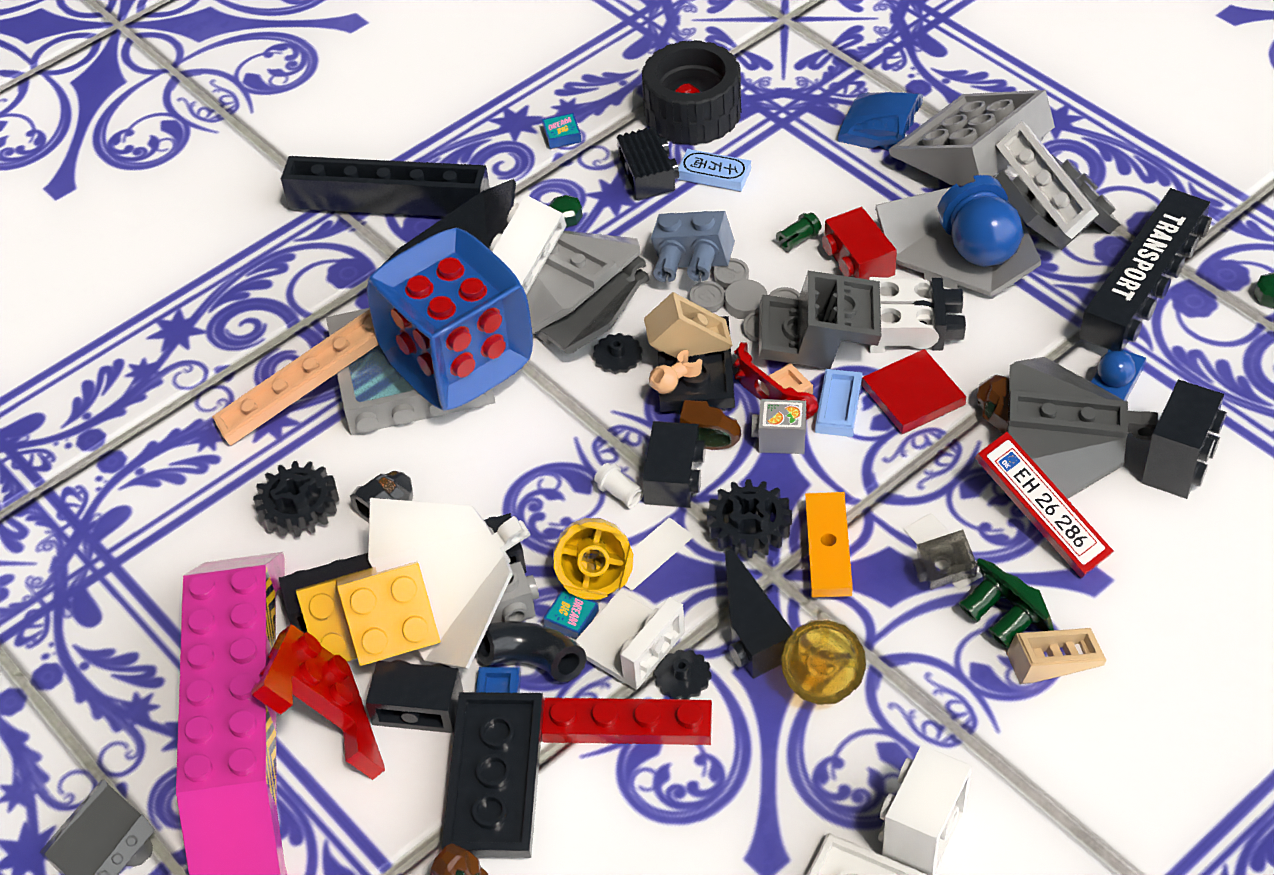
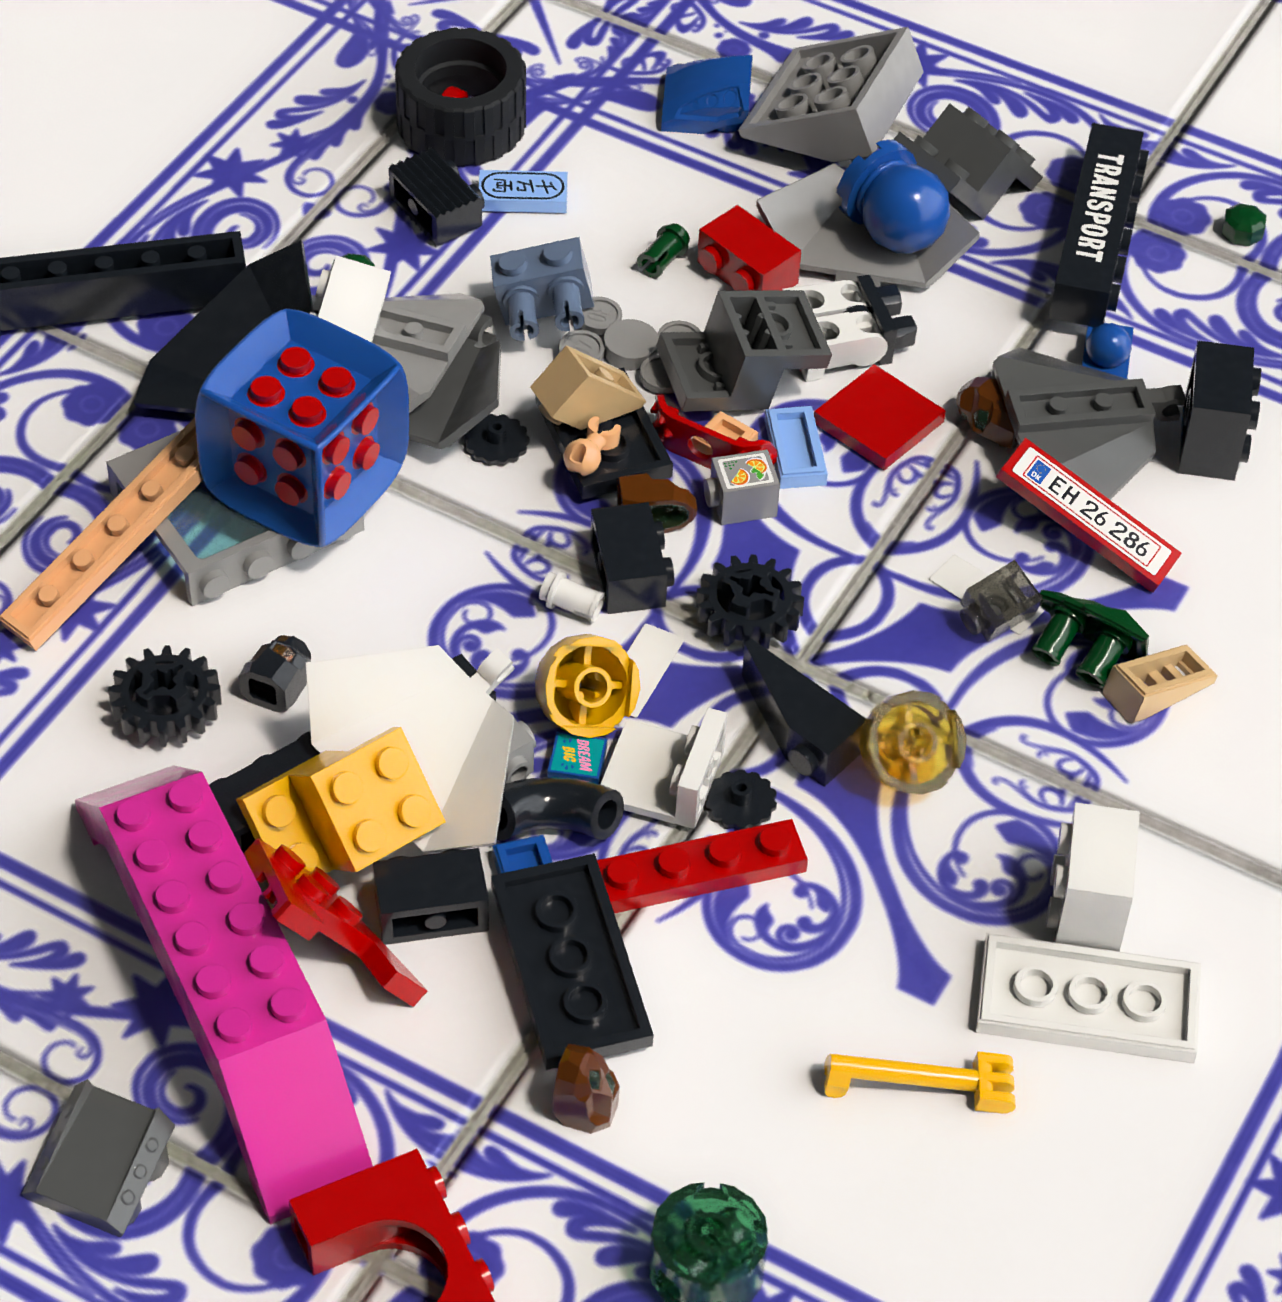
camera: 25 degrees left, 0 degrees up
(561, 130) = (301, 173): tile -> none
(828, 544) = (855, 613): light orange tile -> none
(1047, 180) = (955, 134): white plate -> none

